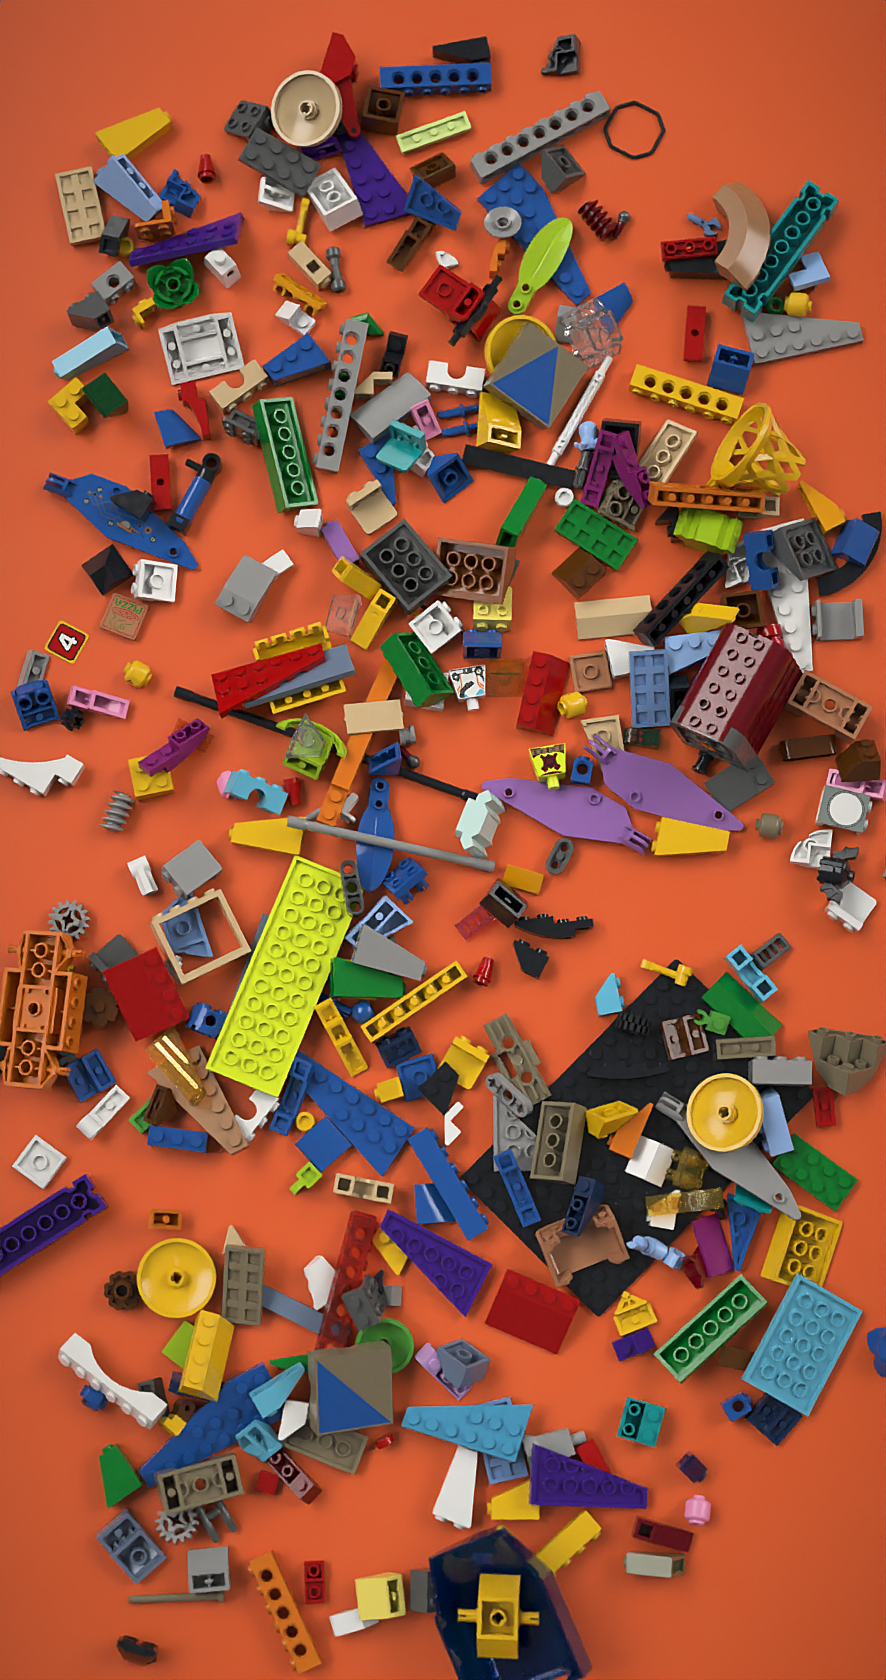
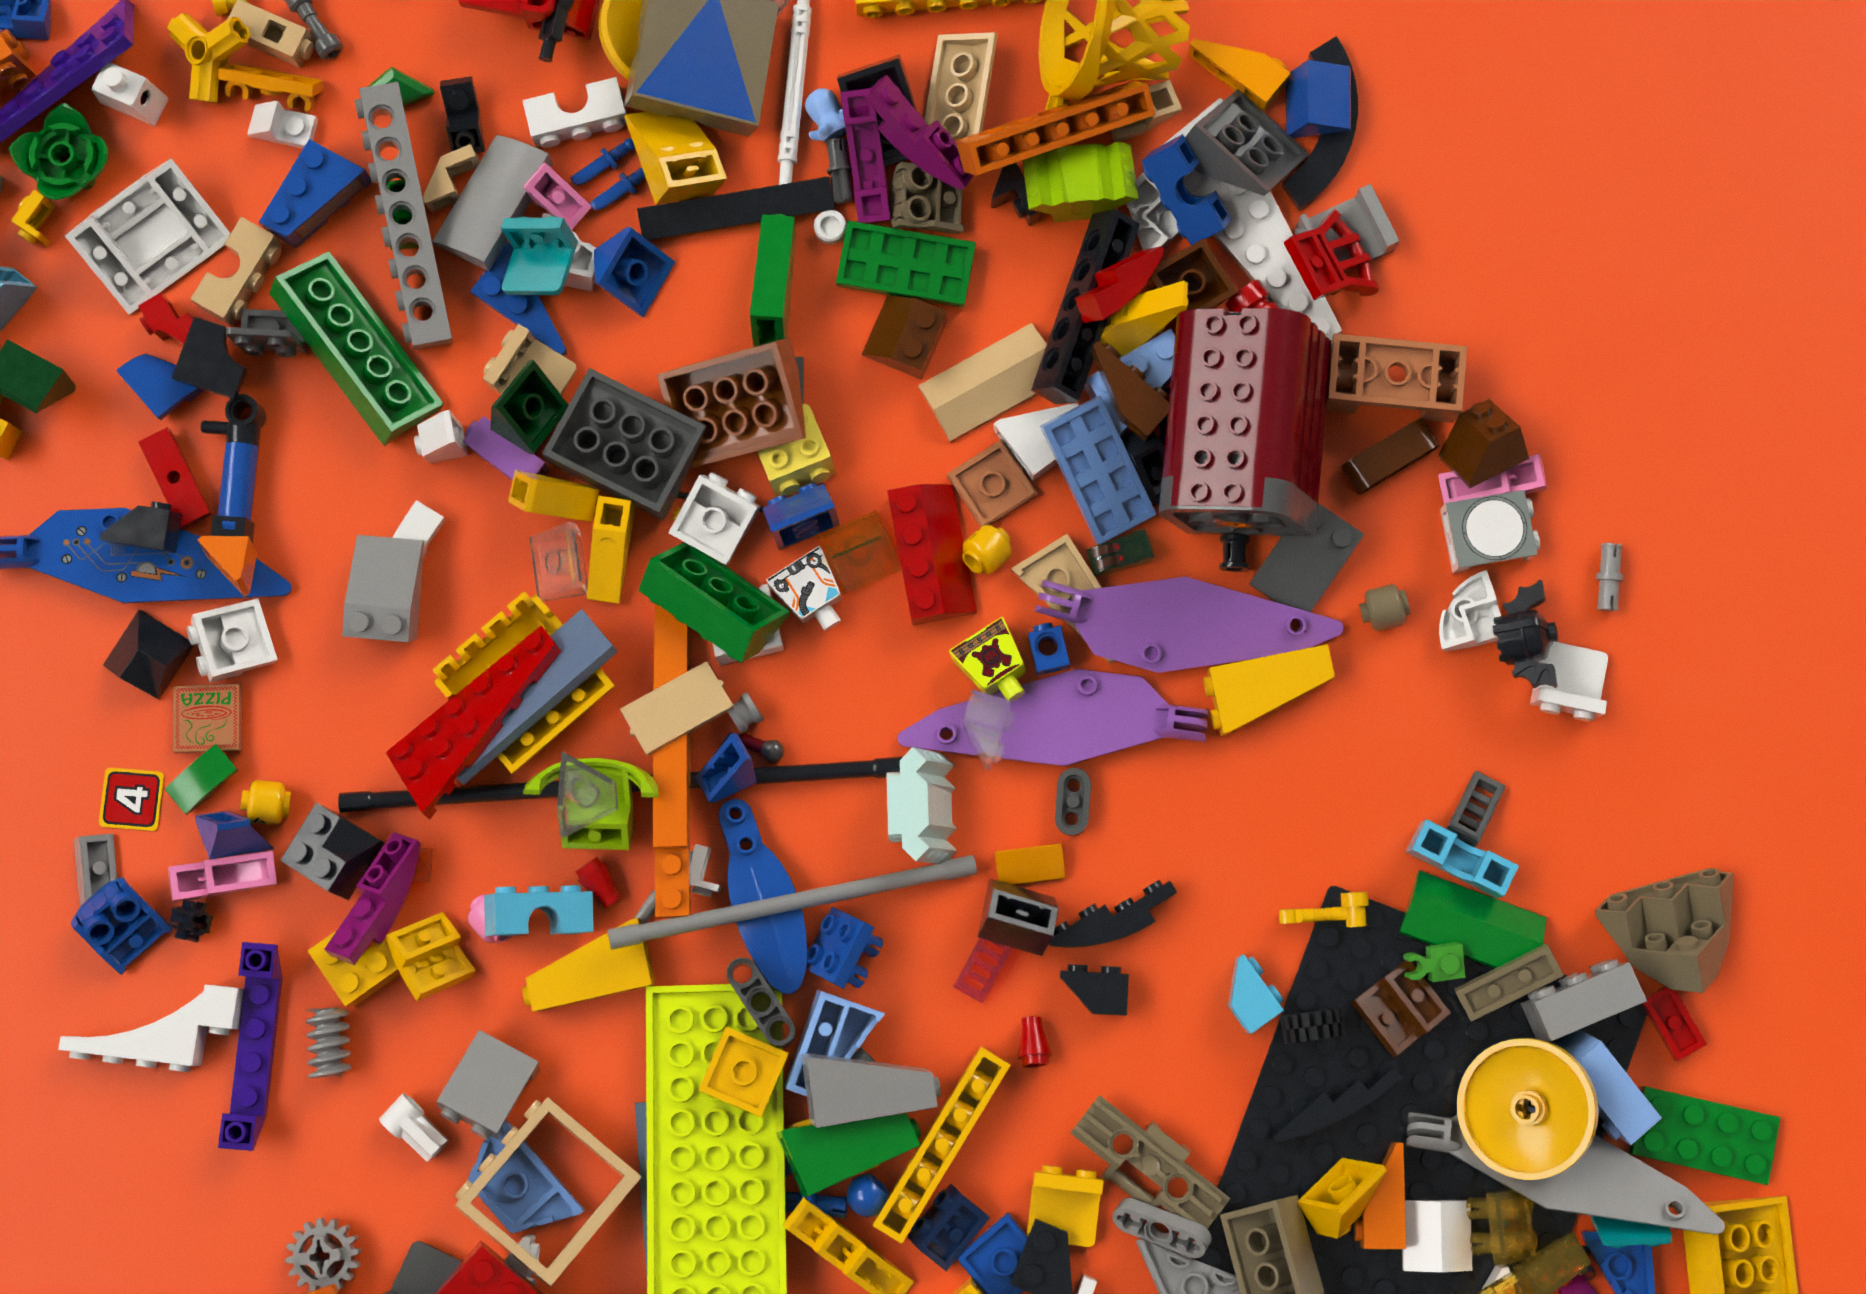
camera: 15 degrees left, 0 degrees up
(79, 796) = (255, 1047): none -> dark purple slope
(108, 647) = (201, 779): none -> green slope
(111, 682) = (228, 835): none -> blue slope
(161, 714) = (332, 851): none -> black slope
(173, 537) = (233, 558): none -> orange slope
(189, 790) = (429, 956): none -> yellow slope
(204, 429) = (207, 362): none -> black tile
(273, 262) = (207, 51): none -> yellow piece
(327, 920) = (743, 1072): none -> yellow plate
(362, 526) = (528, 409): none -> dark green slope
(531, 795) = (984, 725): none -> clear slope
(683, 658) = (1133, 399): none -> reddish brown slope
(702, 594) = (1118, 284): none -> red slope
(814, 631) = (1319, 265): none -> red plate

